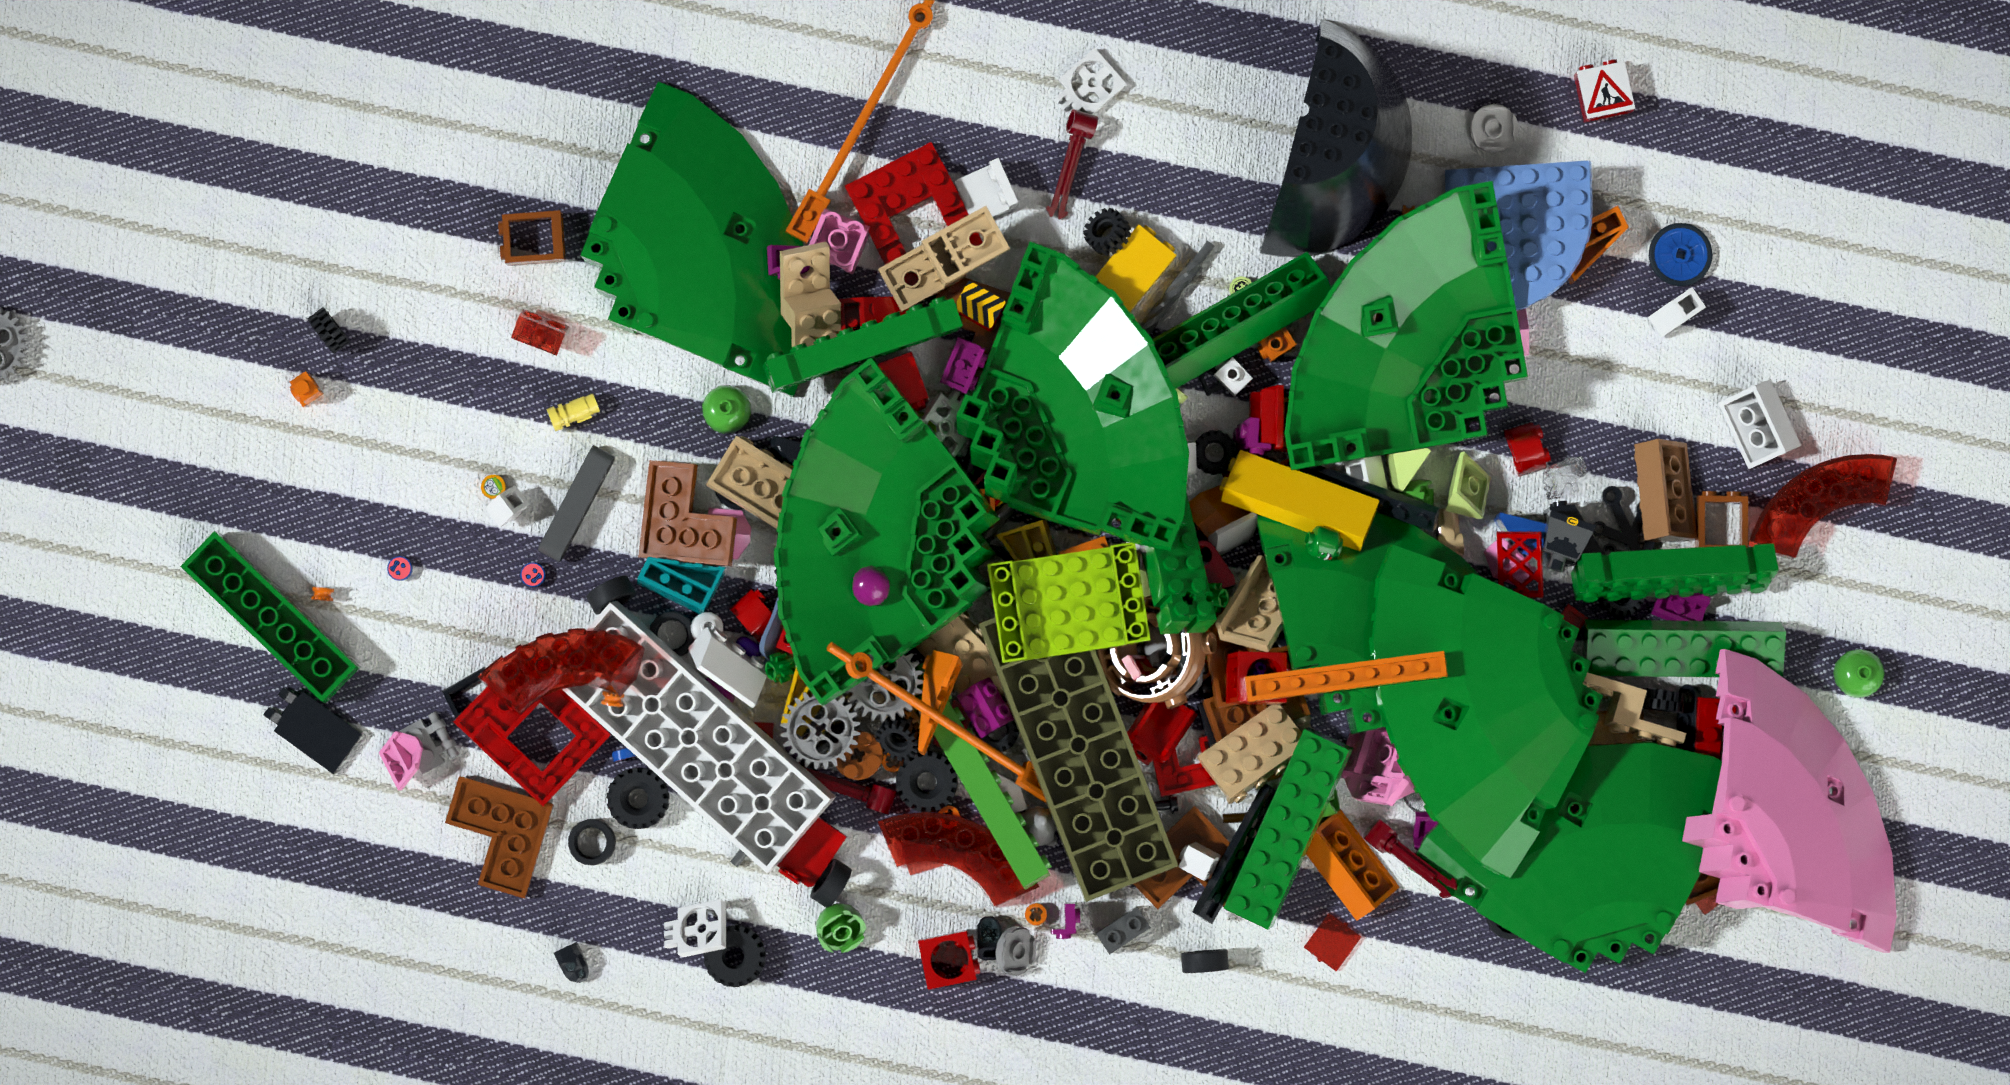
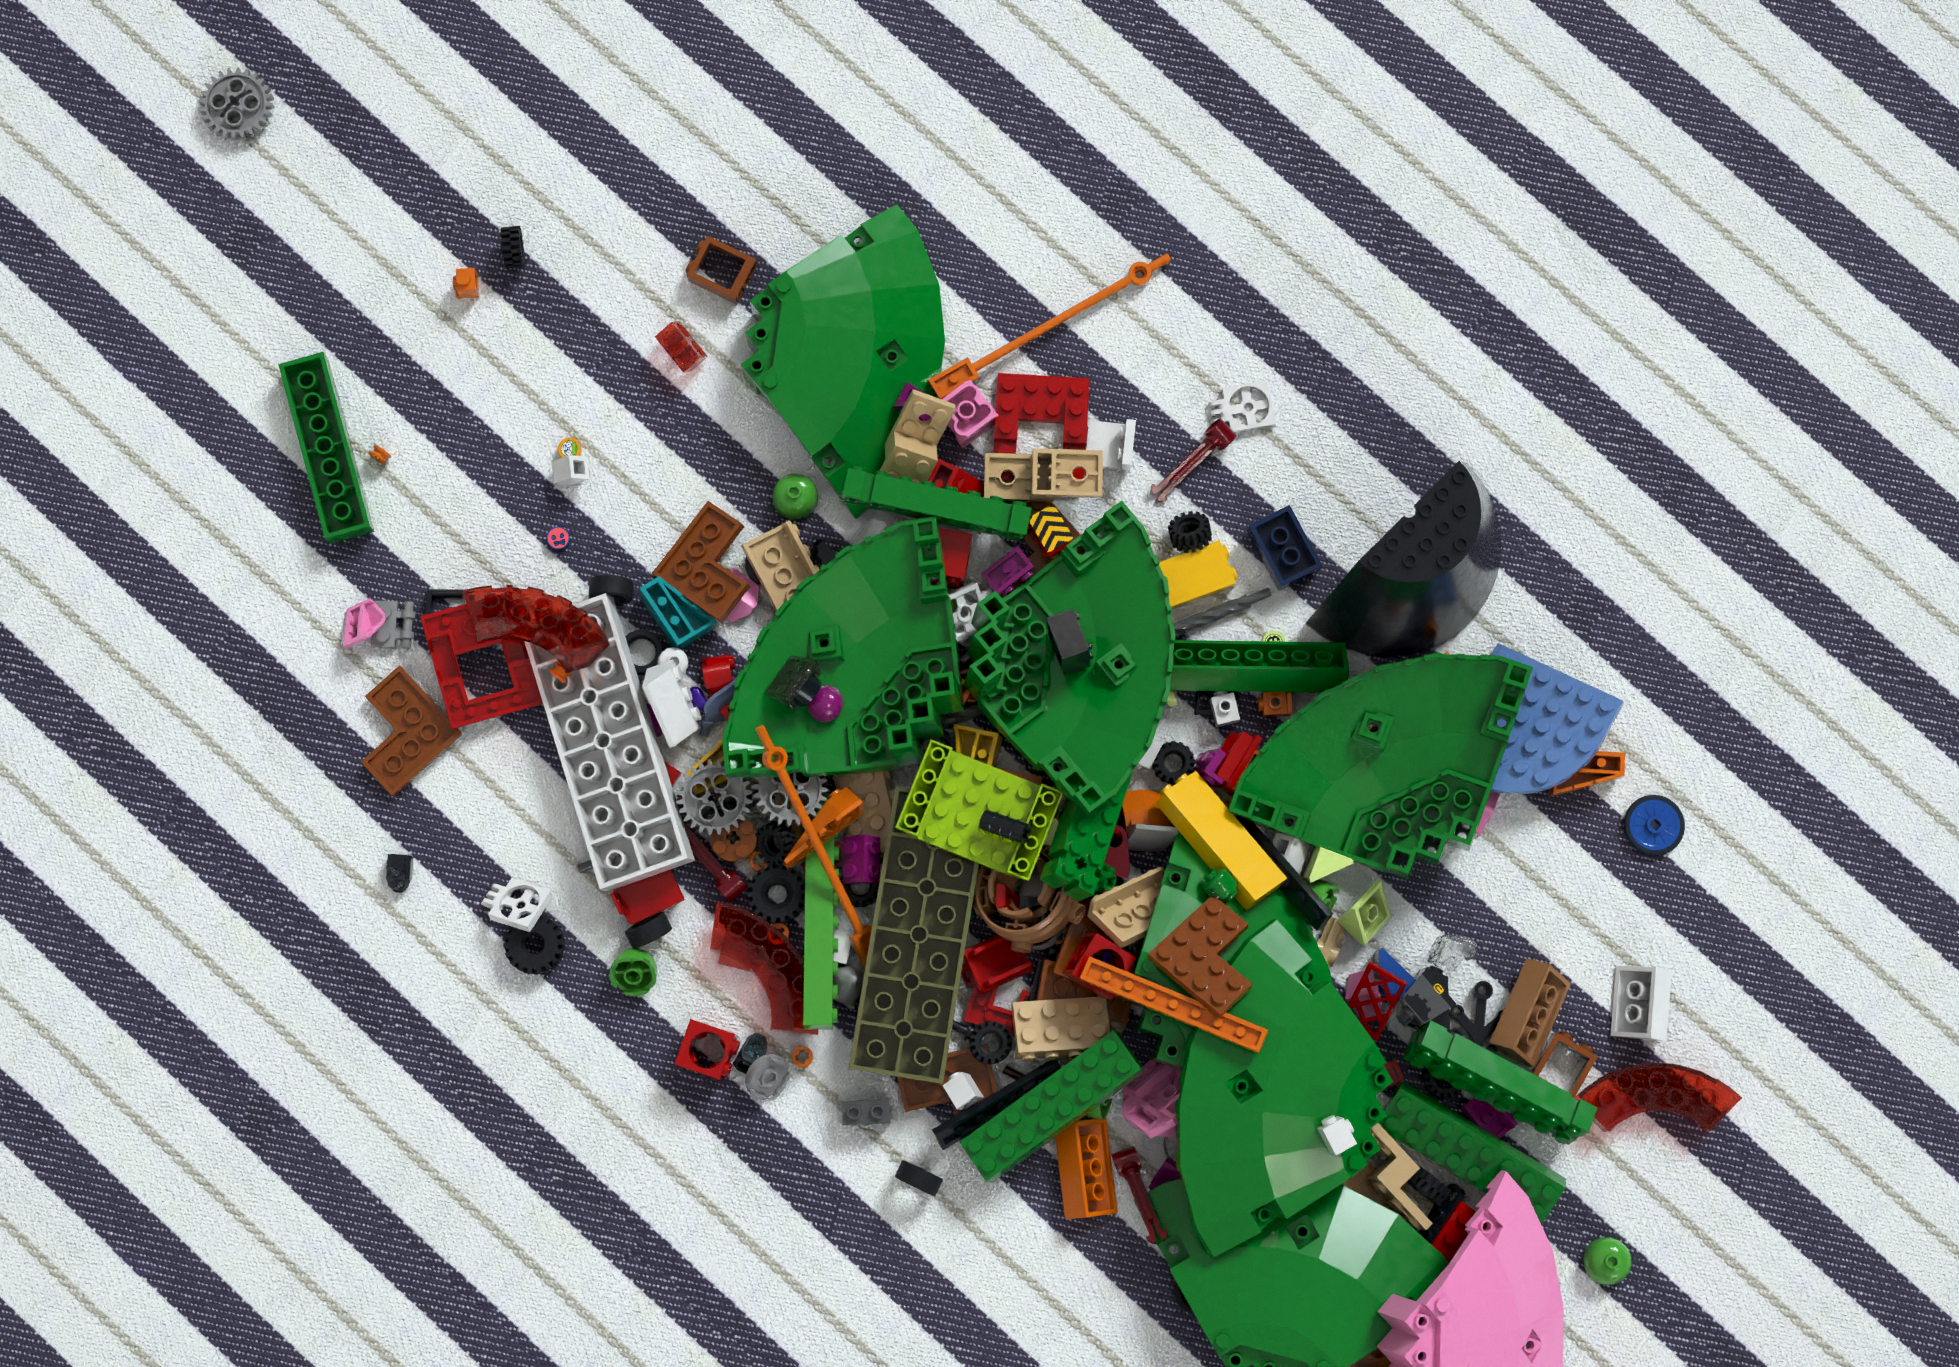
camera: 25 degrees right, 5 degrees down
(314, 729) = (306, 559): black tile -> none
(399, 568) = (454, 471): tile -> none
(573, 839) = (474, 764): black tyre -> none
(575, 410) = (672, 426): light yellow axle -> none
(576, 503) = (628, 501): dark grey beam -> none
(619, 798) = (516, 763): black tyre -> none
(622, 754) = (541, 725): blue tile -> none
(780, 667) = (711, 729): green gear -> none
(834, 583) = (800, 686): none -> clear smoke piece
(1058, 400) = (1068, 641): none -> black container
(1072, 916) = (829, 1076): magenta bracket -> none
(1101, 604) = (1005, 826): none -> black axle
(1201, 196) = (1284, 548): none -> dark blue brick
(1209, 792) = (1004, 1038): none -> black tyre
(1332, 942) = (1034, 1226): clear red piece -> none
(1337, 623) = (1193, 958): none -> dark orange plate
(1493, 128) = (1557, 633): white tile -> none
(1527, 448) = (1434, 911): red cylinder -> none
(1557, 707) = (1336, 1134): none -> white brick
(1604, 90) = (1667, 654): piece -> none
(1676, 312) = (1624, 870): white slope -> none

